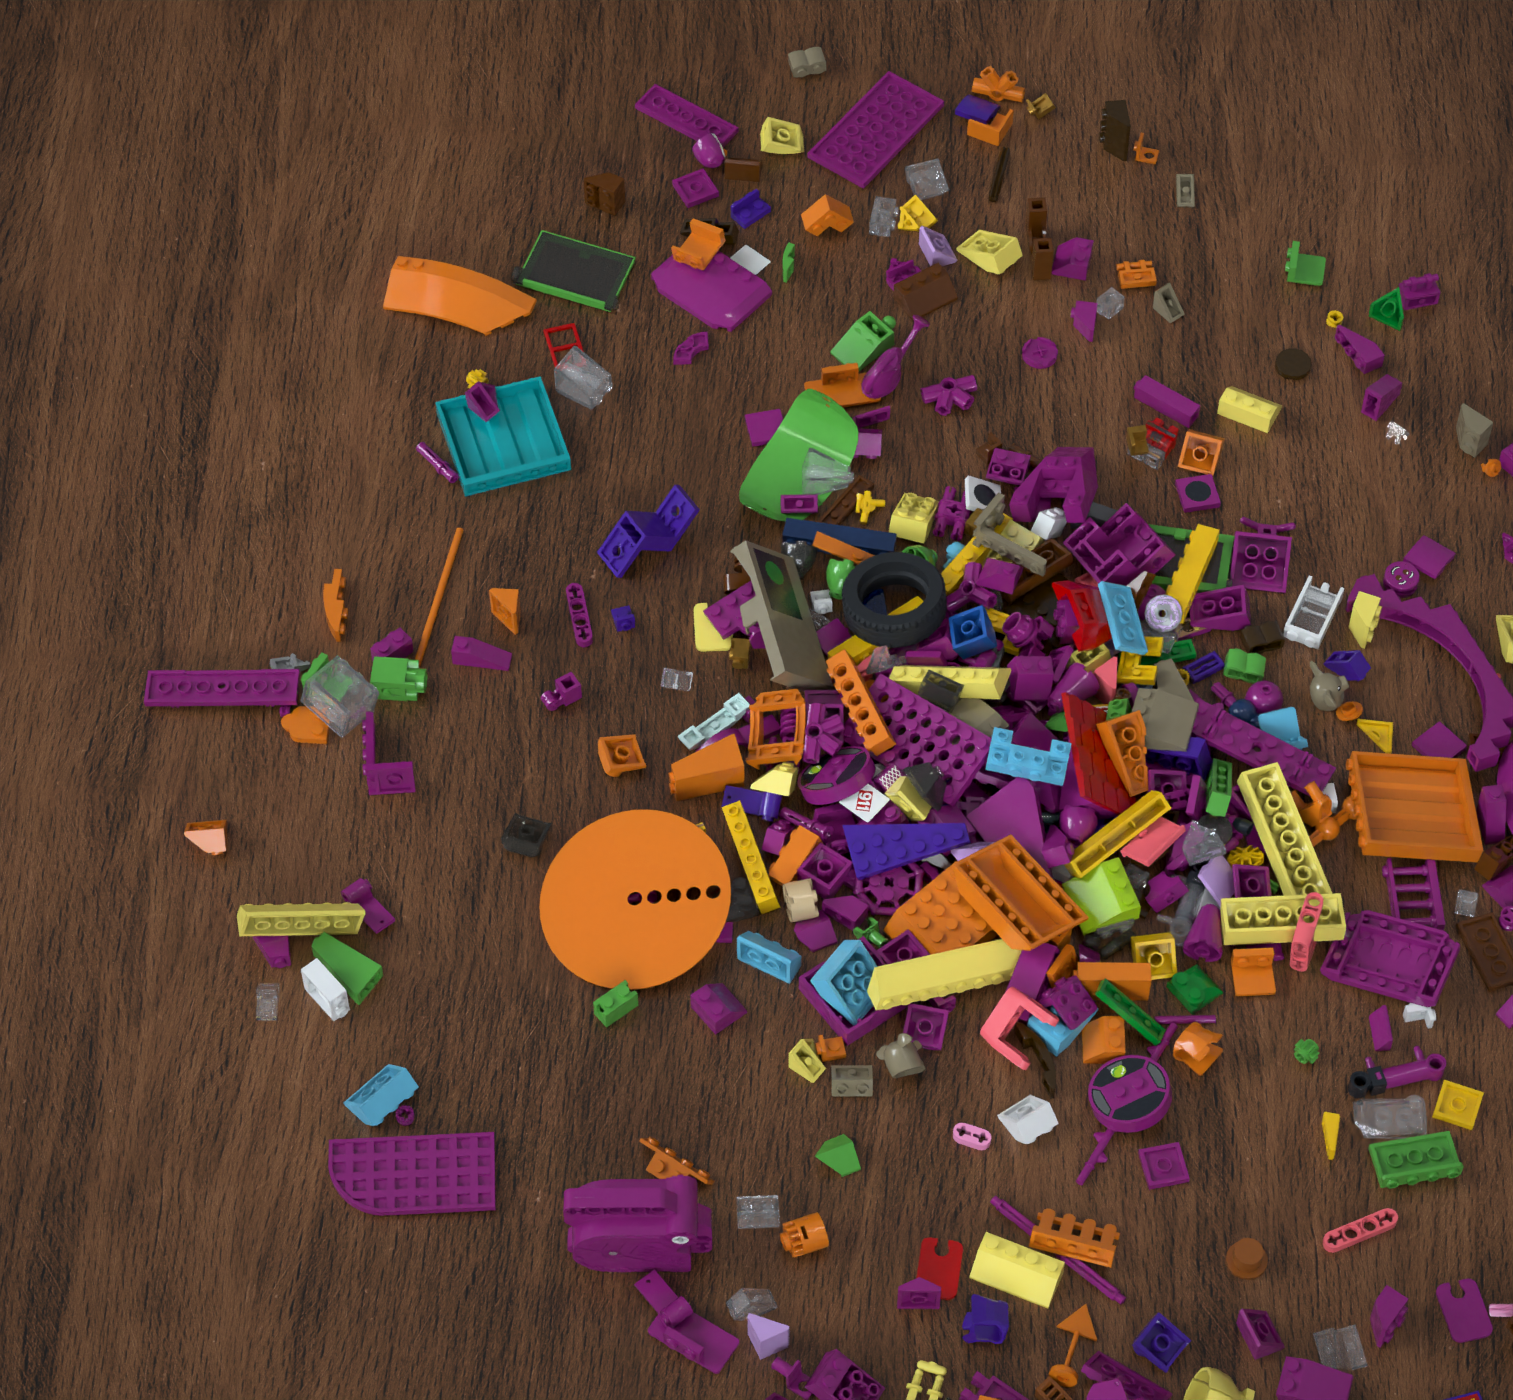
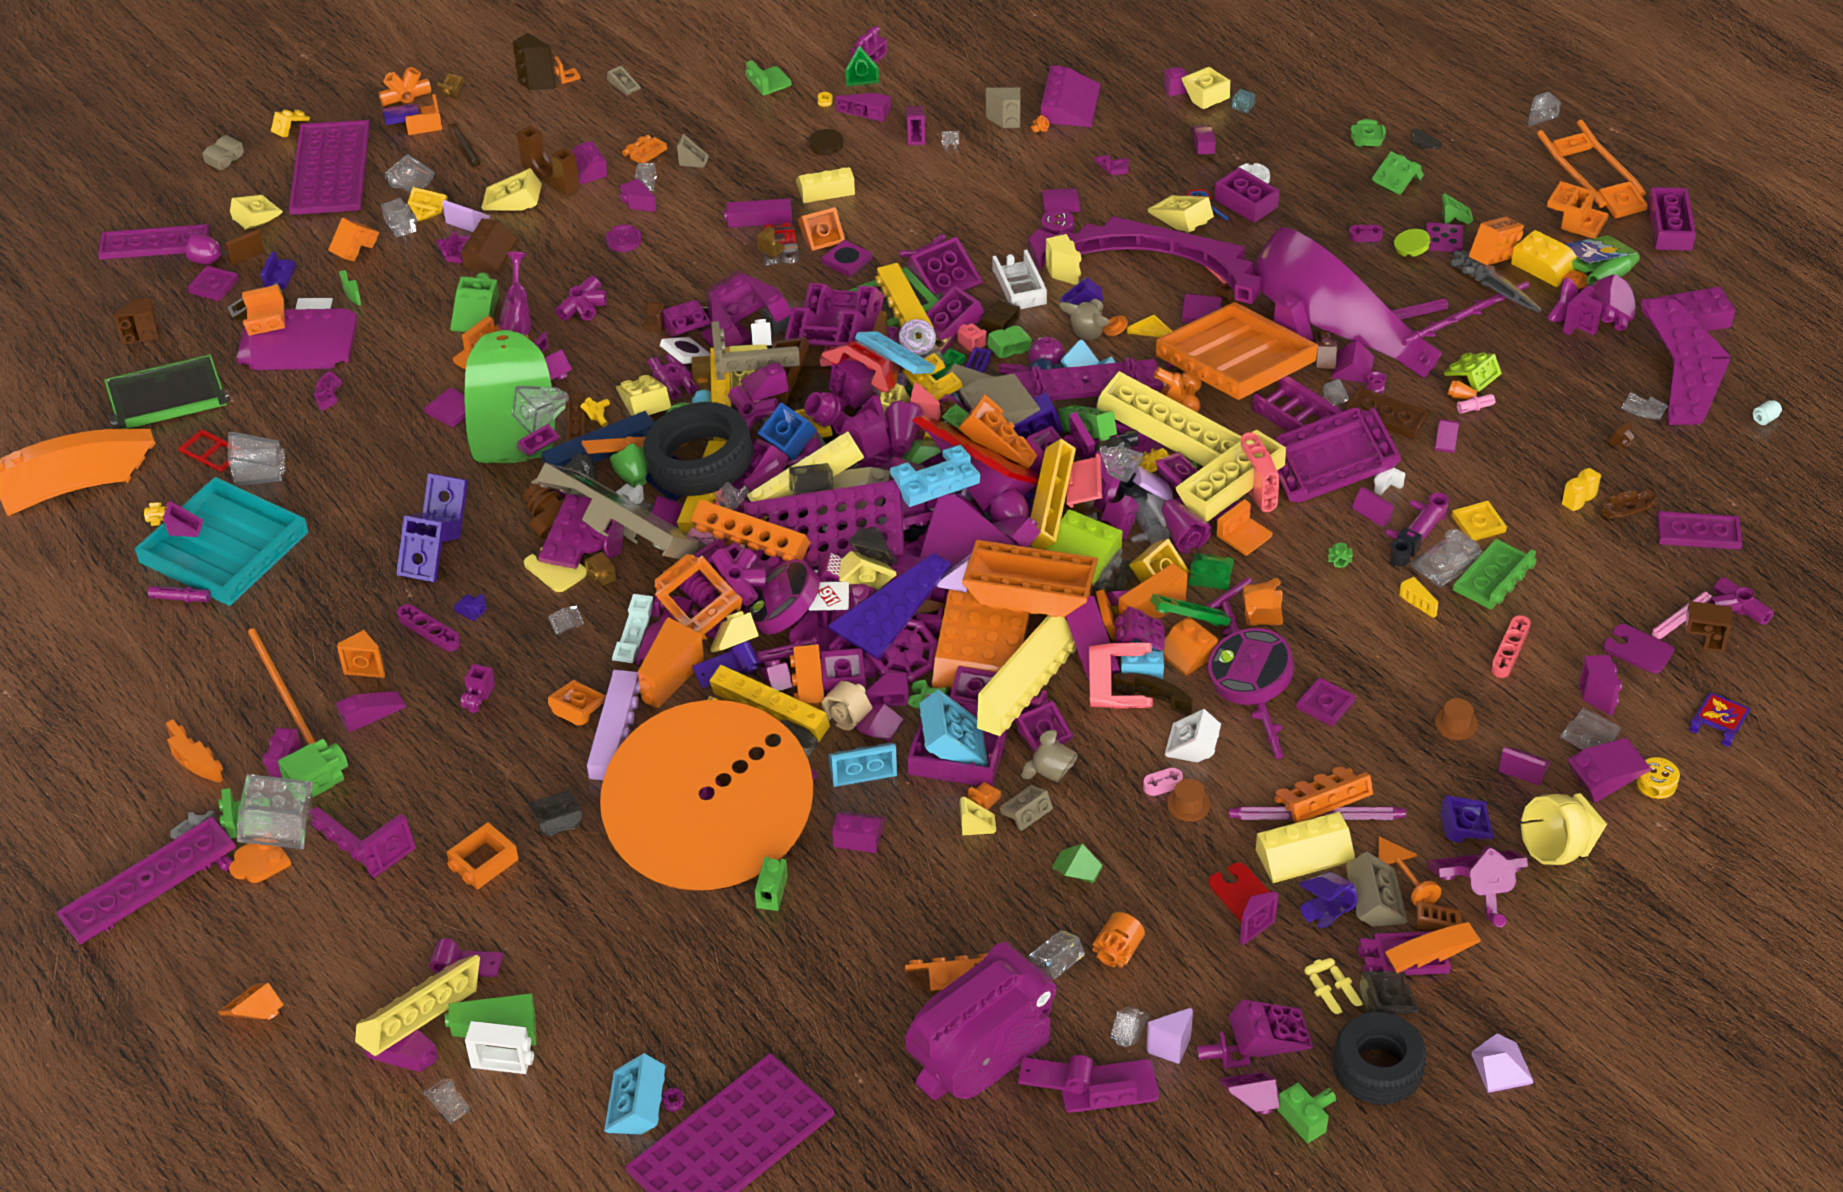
camera: 40 degrees left, 10 degrees down
(448, 847) = (487, 834): none -> orange window
(631, 790) = (614, 721): none -> lavender brick
(879, 57) = (283, 119): none -> yellow bracket
(974, 1167) = (1188, 801): none -> dark orange piece
(1032, 1345) = (1377, 891): none -> dark tan slope
(1220, 639) = (969, 334): none -> coral brick

